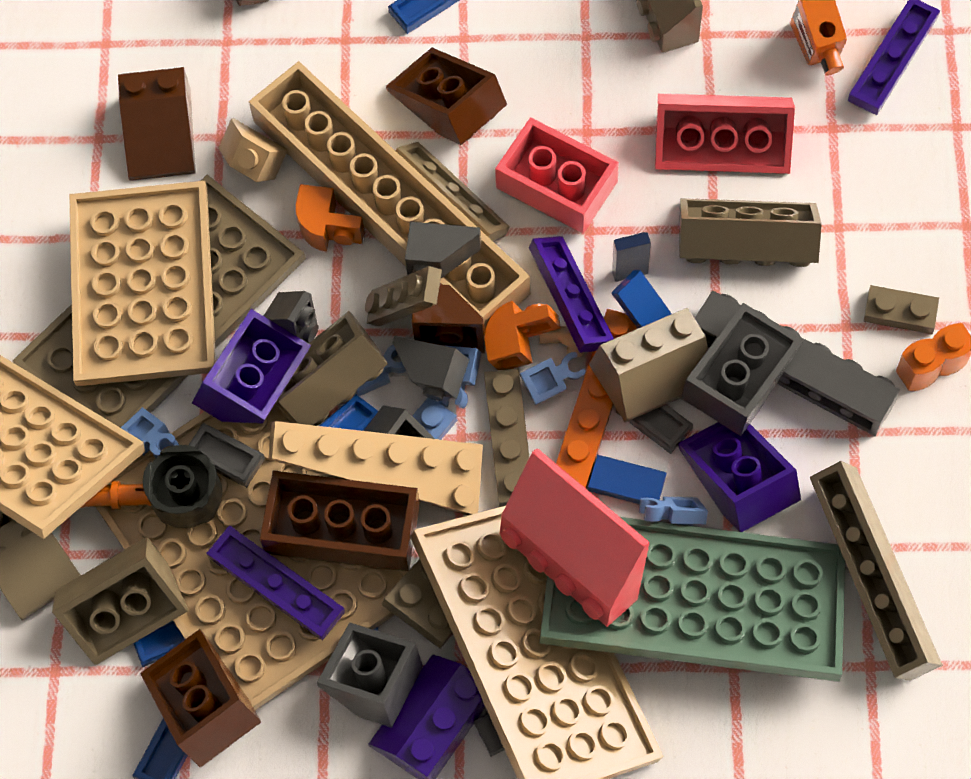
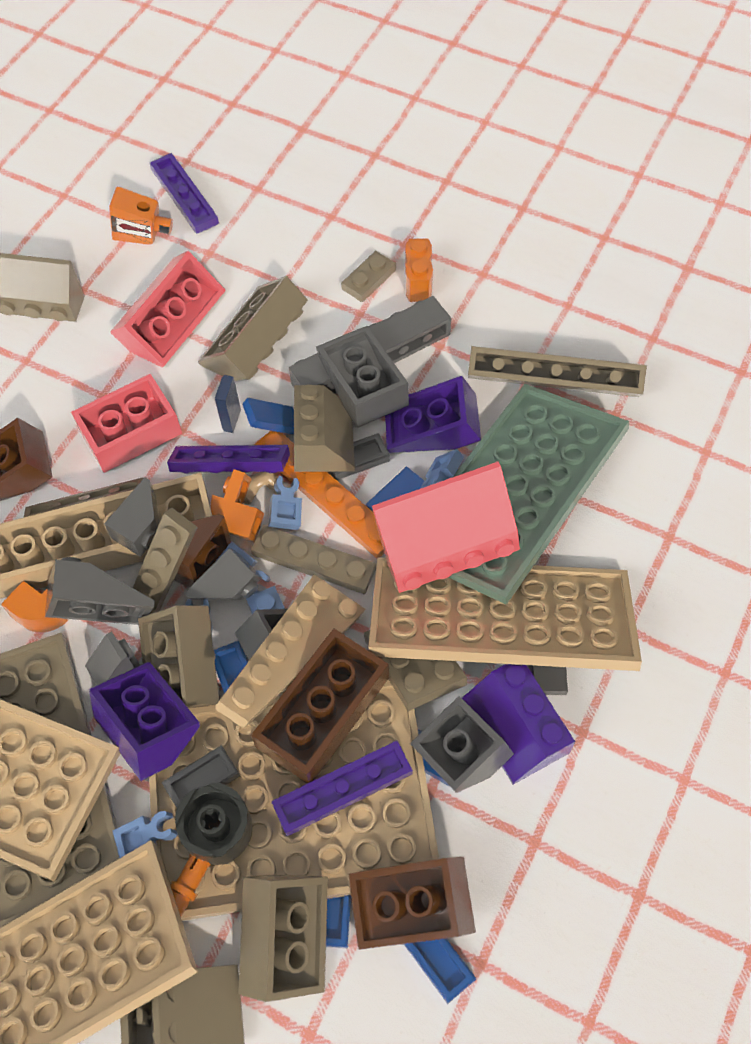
camera: 65 degrees left, 5 degrees down
(338, 243) = (90, 594): none -> dark grey slope

